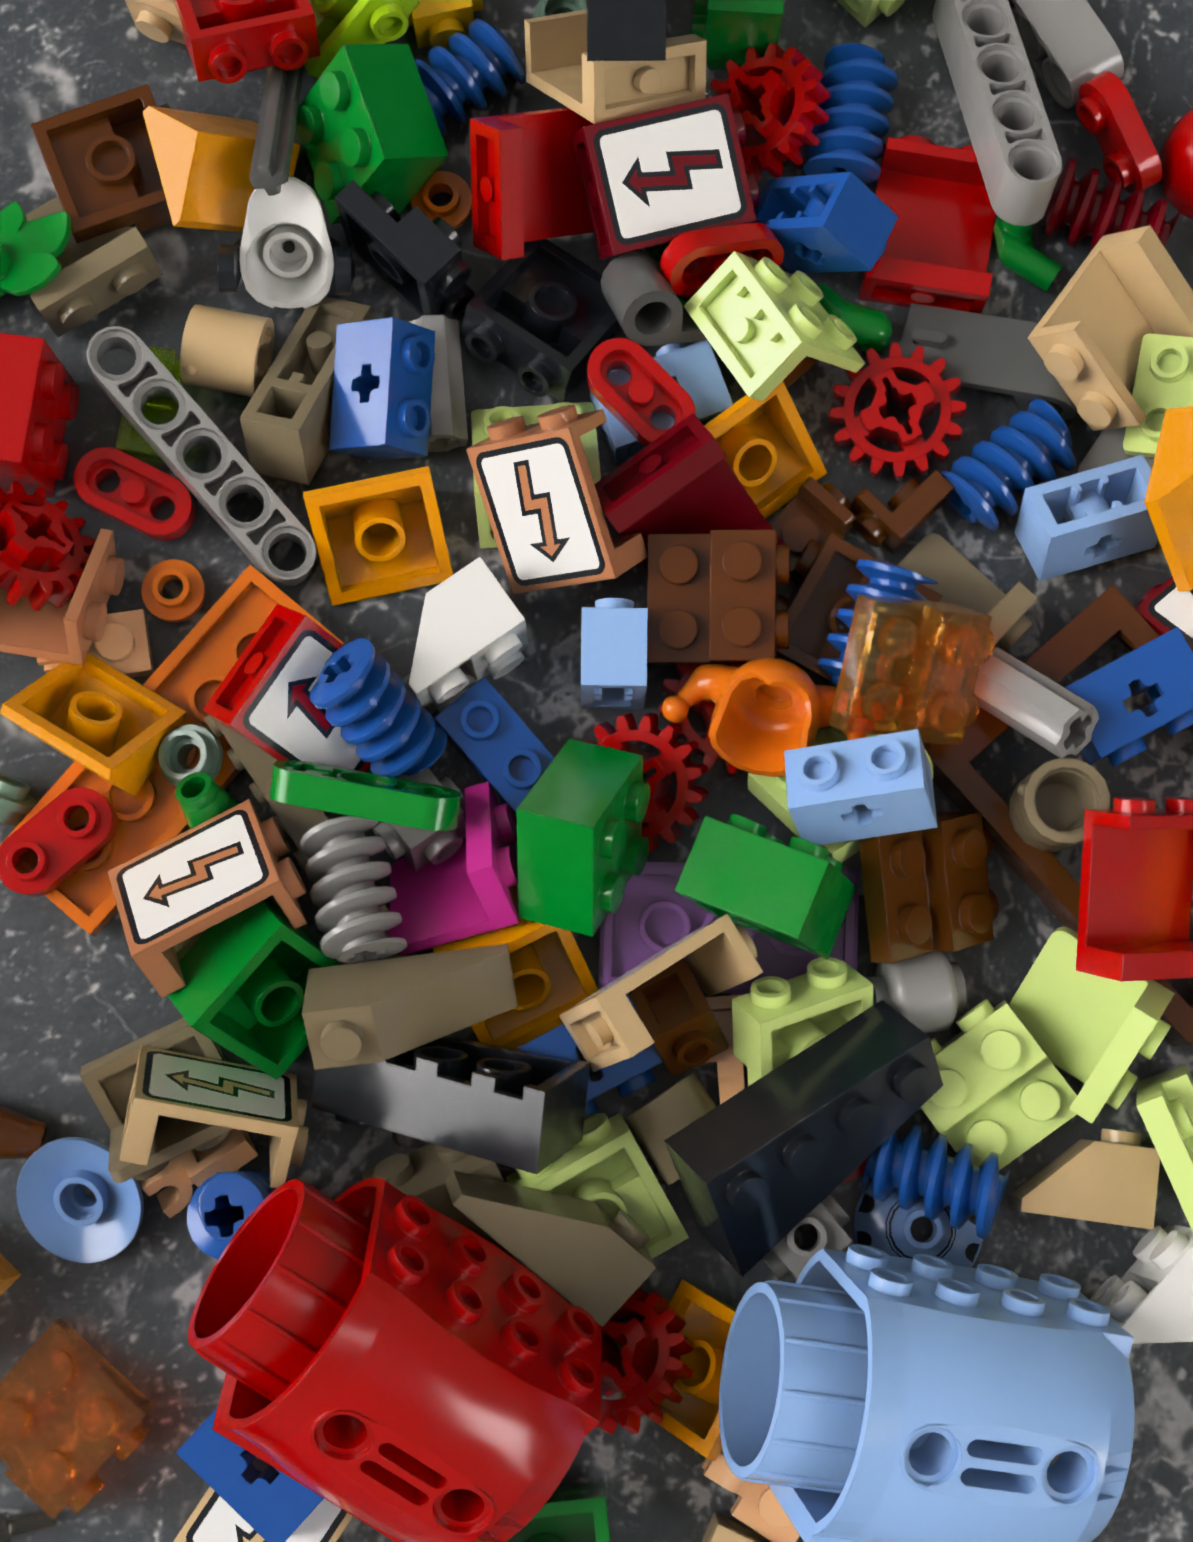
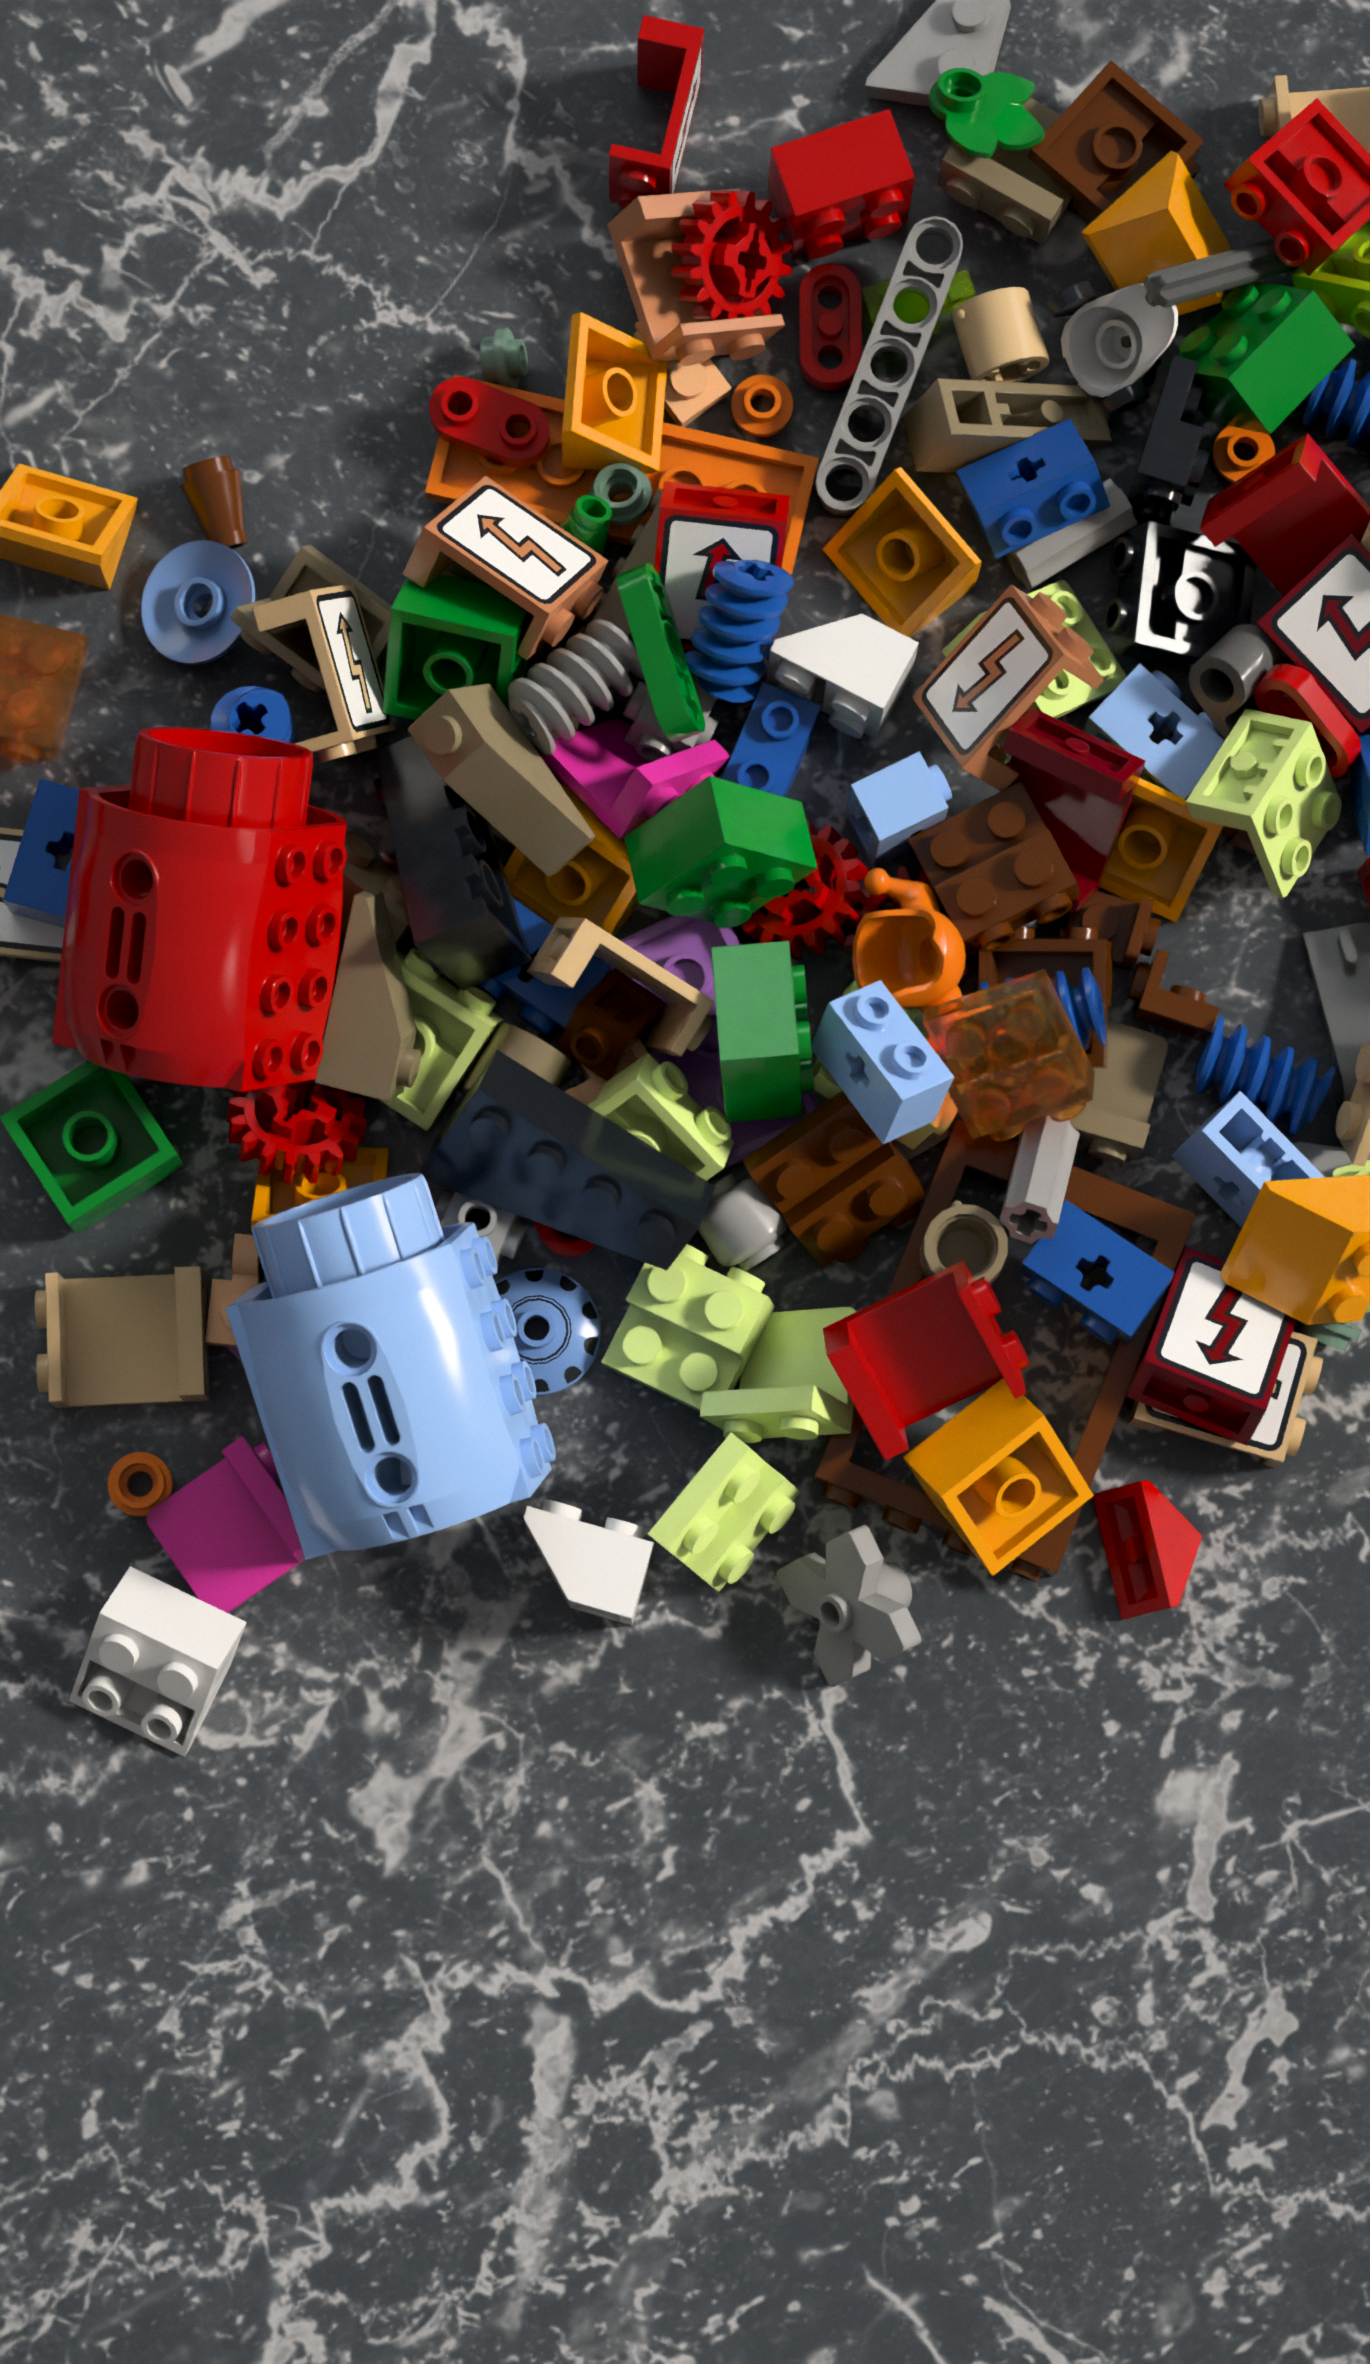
camera: 60 degrees right, 0 degrees up
(196, 1168) = (304, 704): light nougat plate -> none
(643, 396) = (1146, 714): red plate -> none
(868, 324) = (1327, 876): green arm -> none
(922, 400) = (1280, 970): red gear -> none
(938, 1179) = (582, 1313): blue piece -> none
(1097, 1183) = (650, 1456): tan slope -> none

